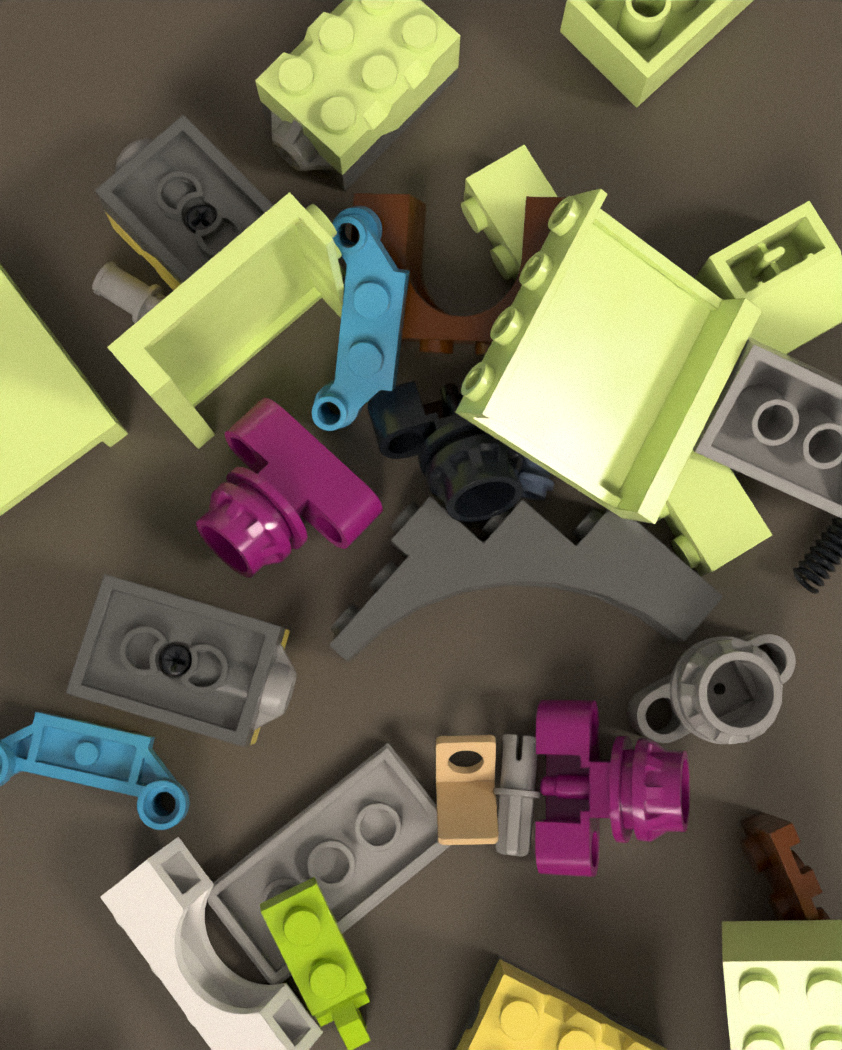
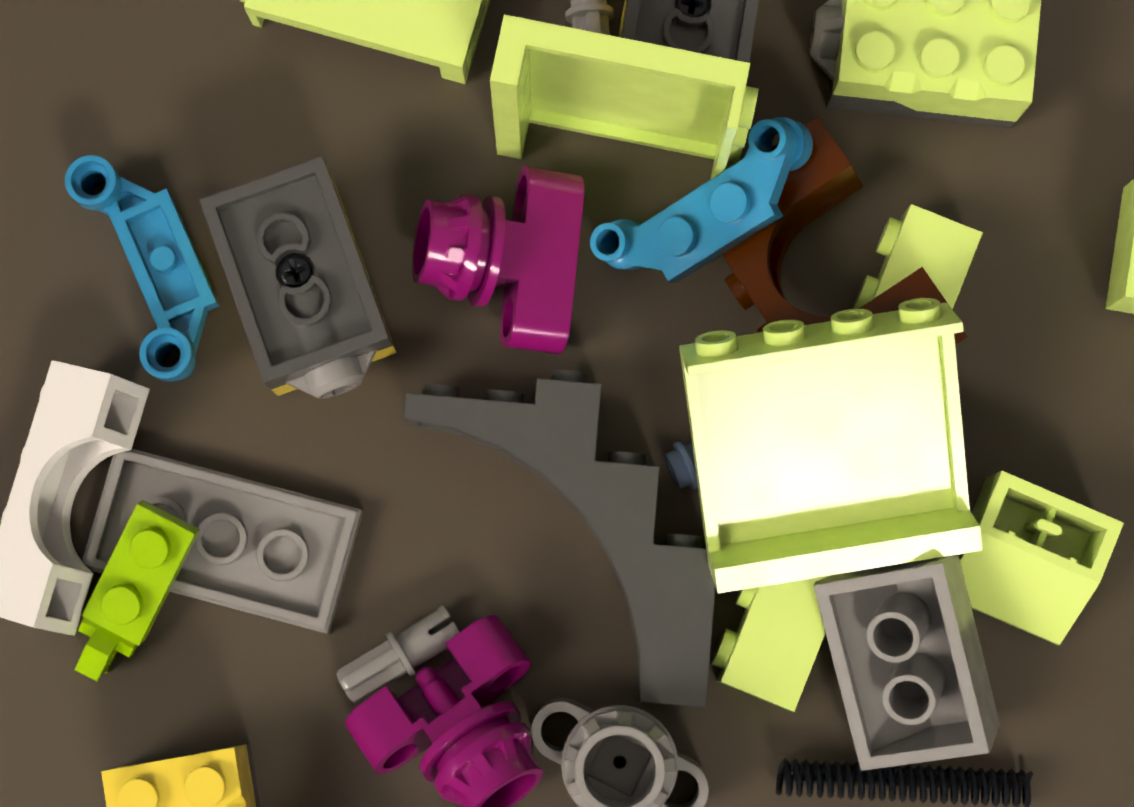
camera: 55 degrees right, 0 degrees up
(459, 460) = (646, 389): black beam -> none
(466, 793) = (365, 608): tan bracket -> none

